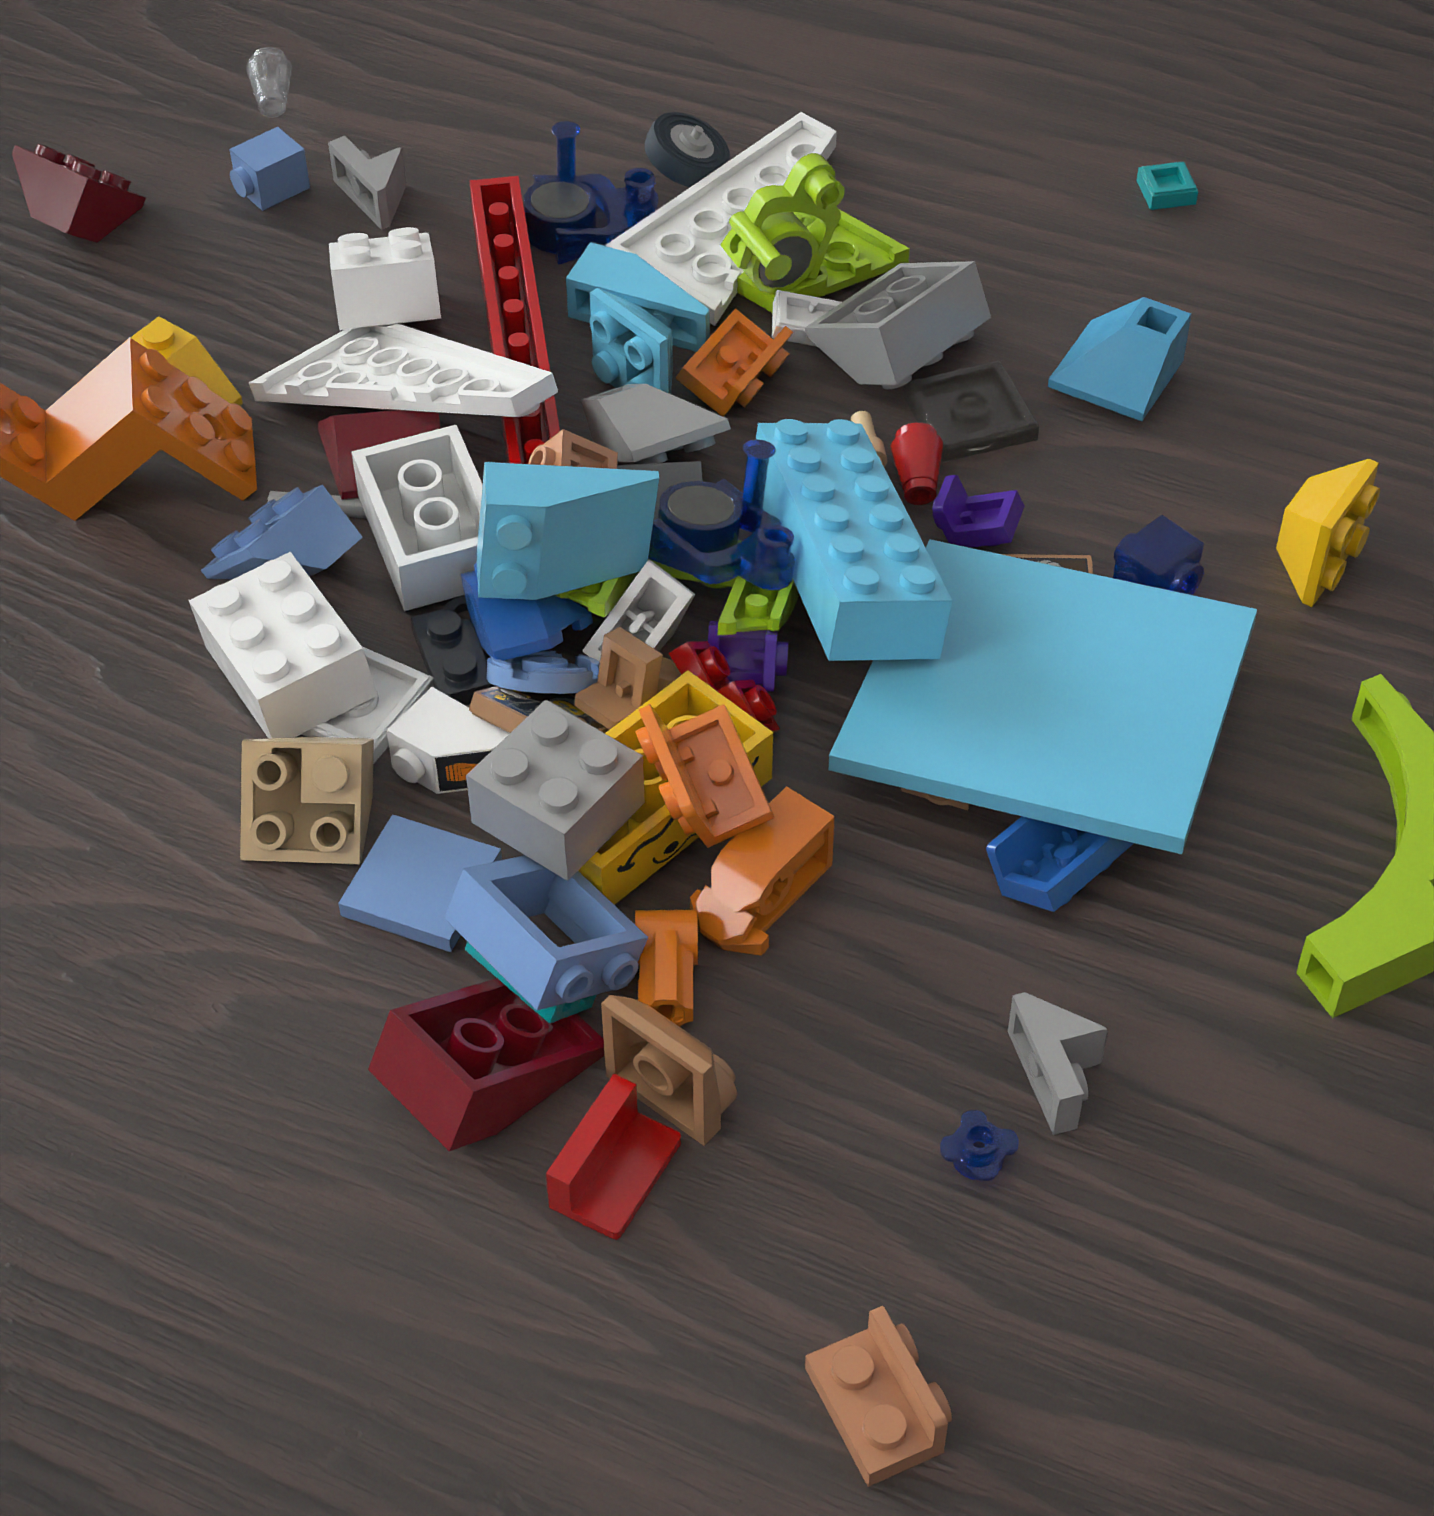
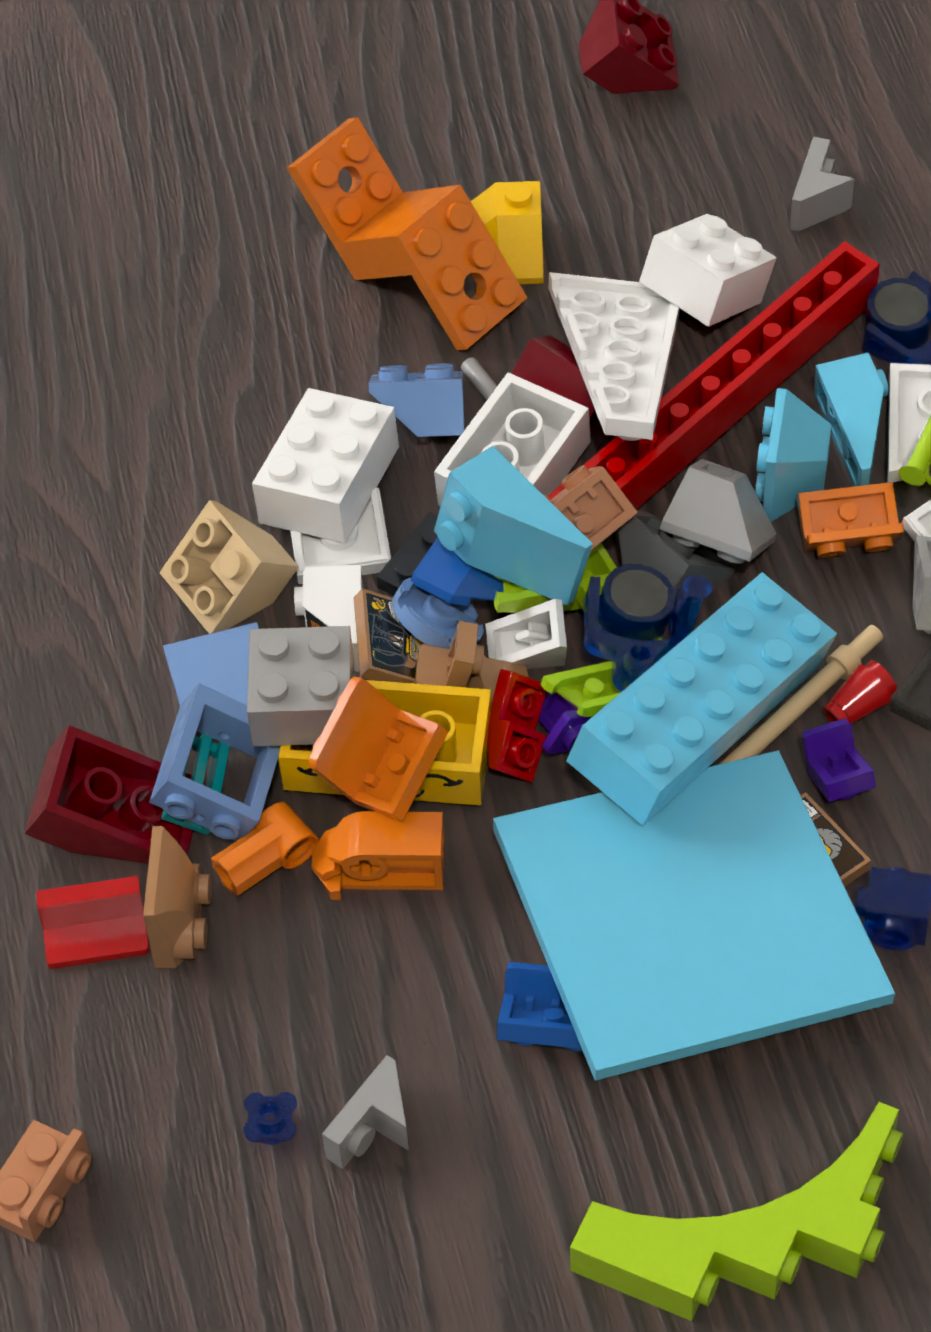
camera: 55 degrees right, 5 degrees up
(269, 168) = (766, 125): medium blue brick -> none
(270, 80) = (862, 56): clear cone -> none

